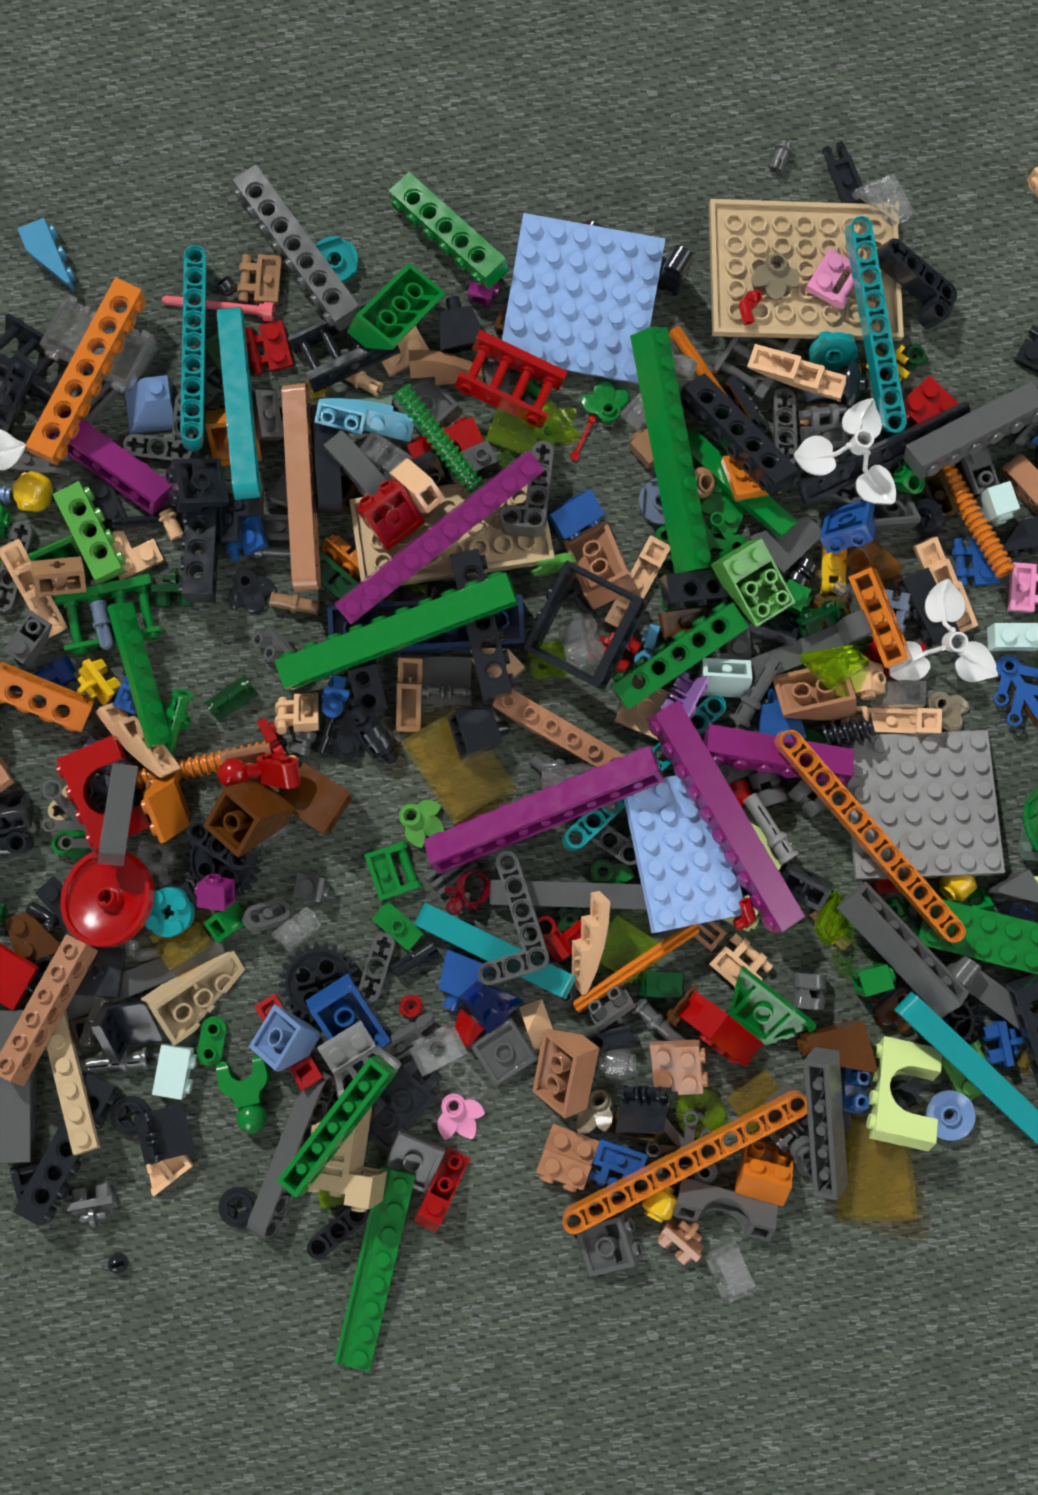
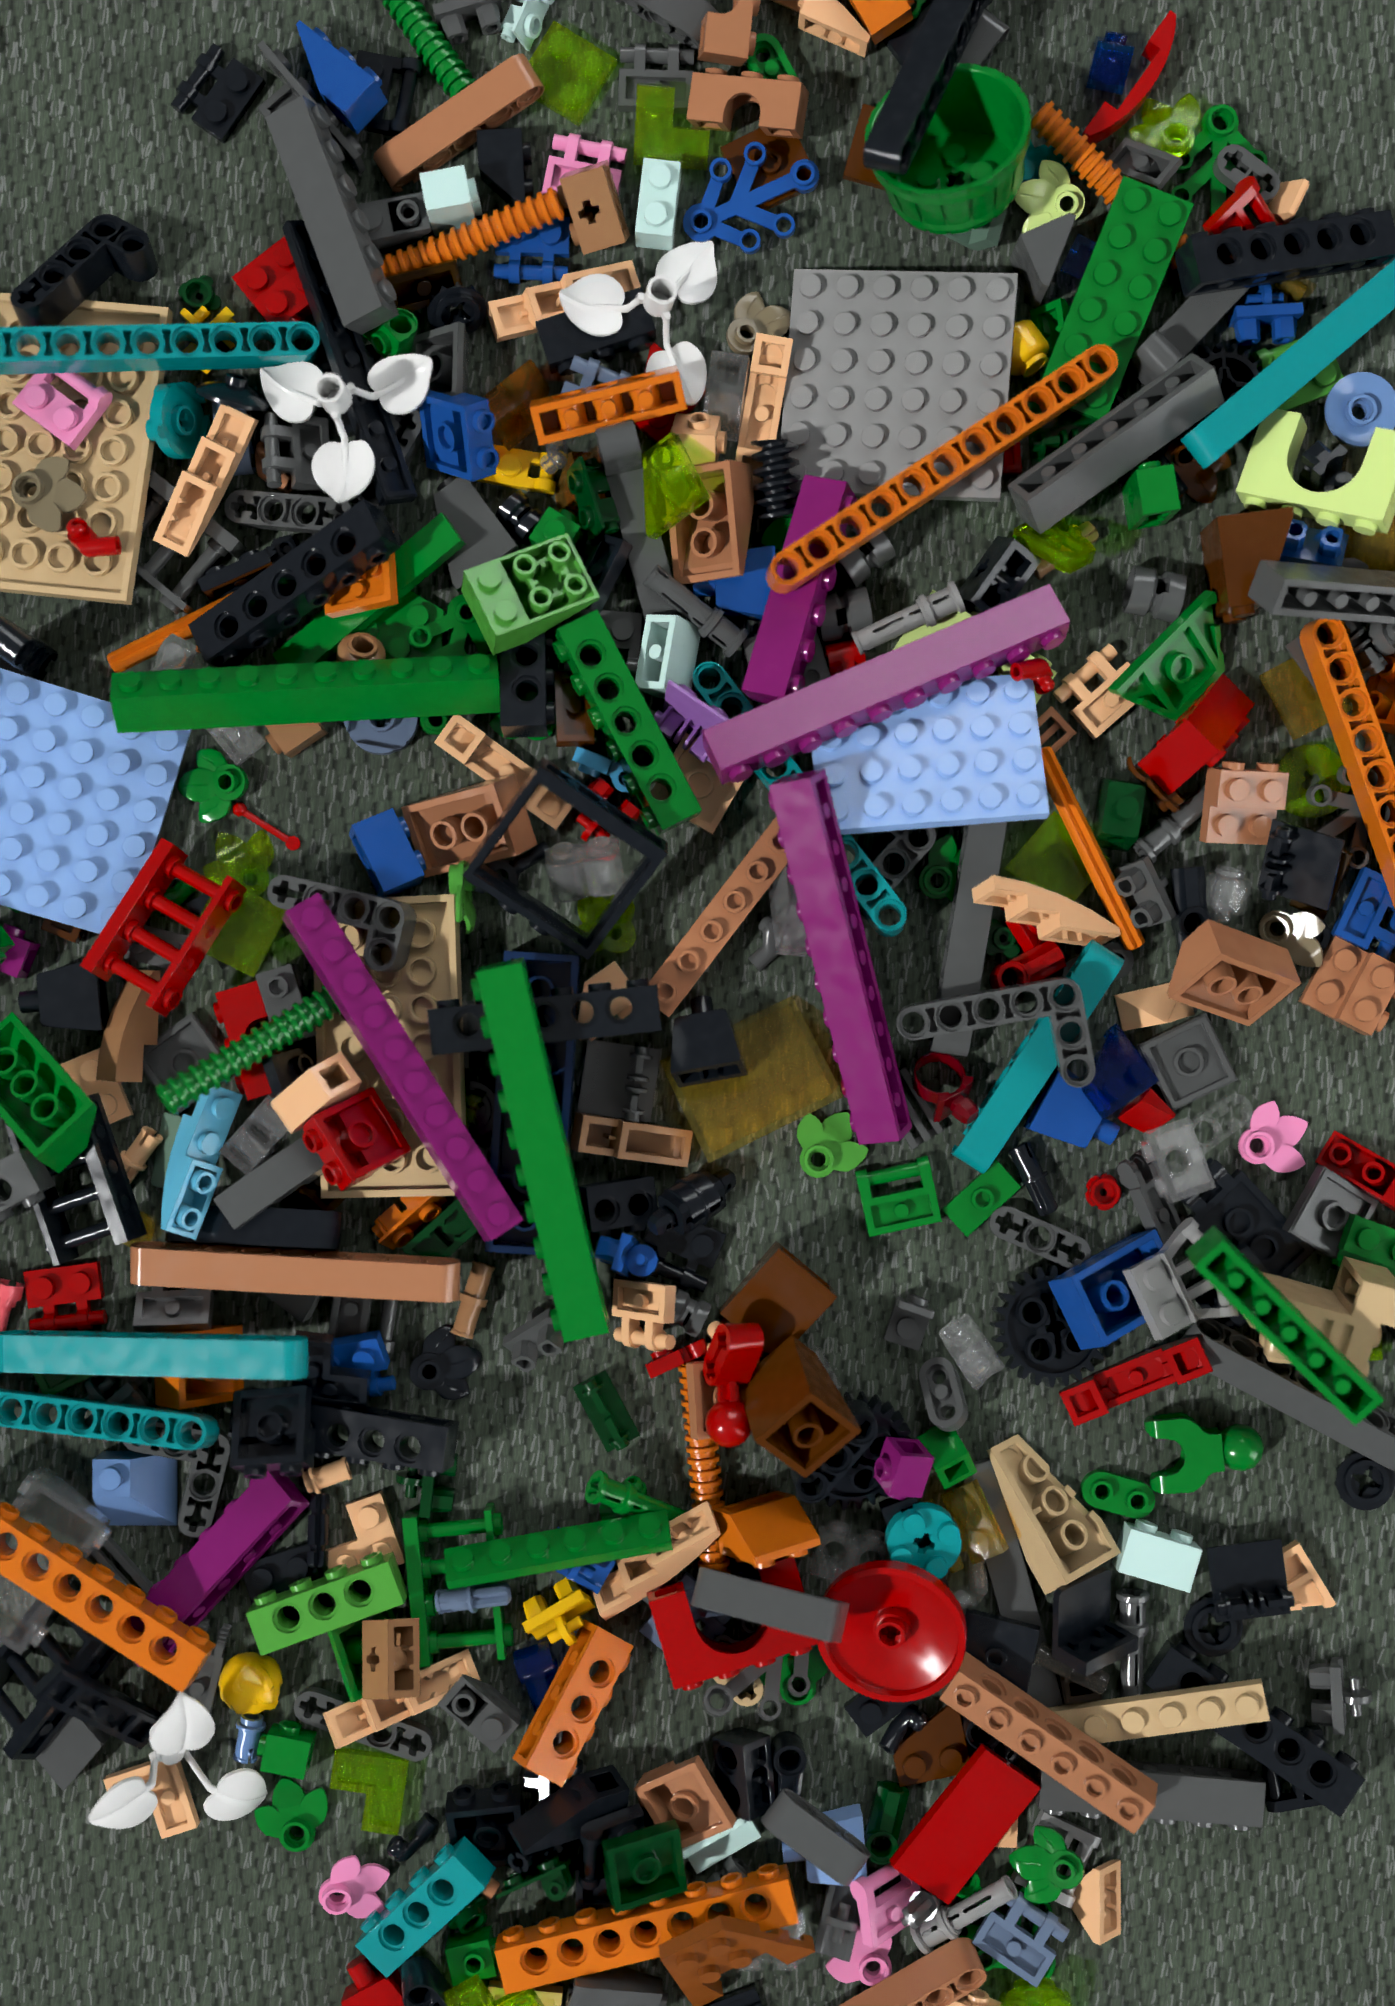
camera: 80 degrees left, 5 degrees up
(283, 1039) = (1133, 1388): medium blue slope -> none
(1019, 595) = (597, 186): none -> medium nougat brick

